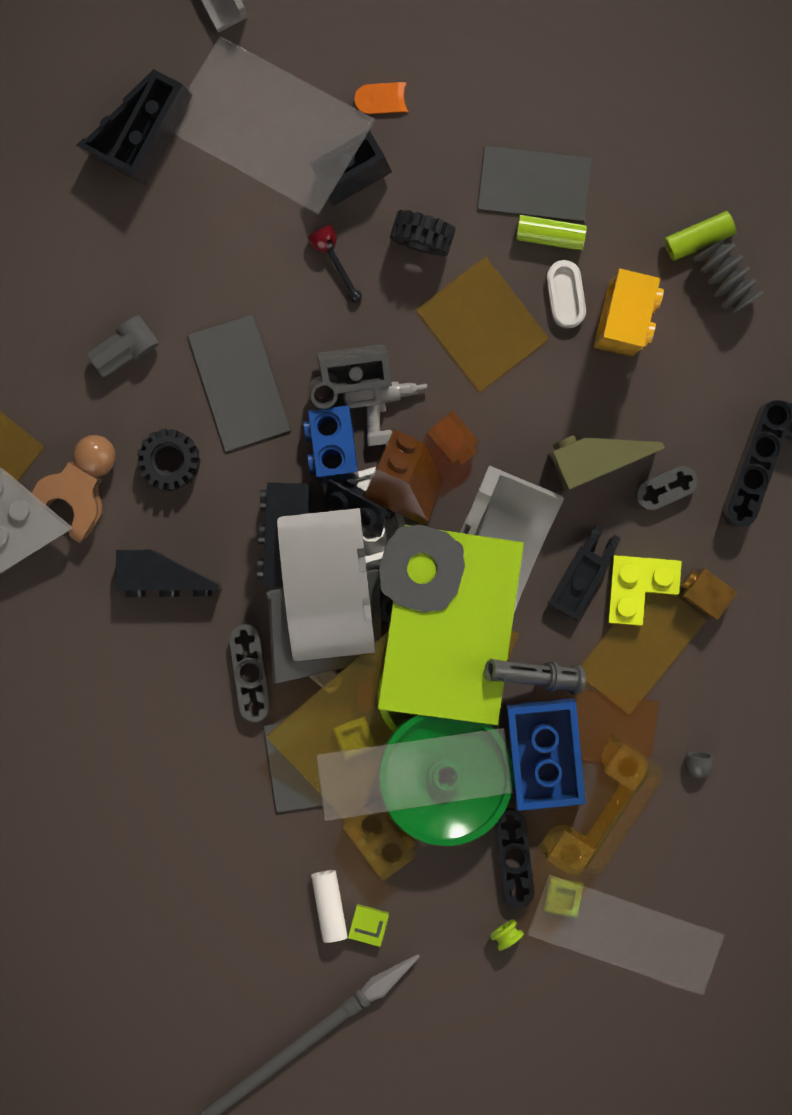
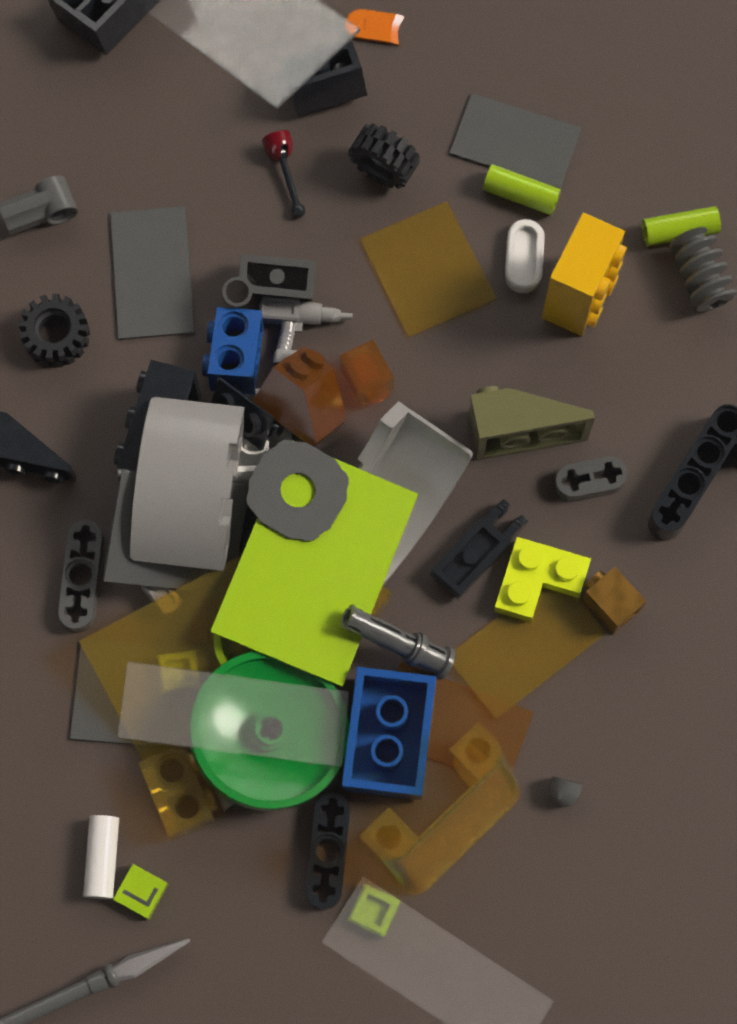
camera: 15 degrees right, 15 degrees down
(506, 935) = (297, 938): lime bush -> none

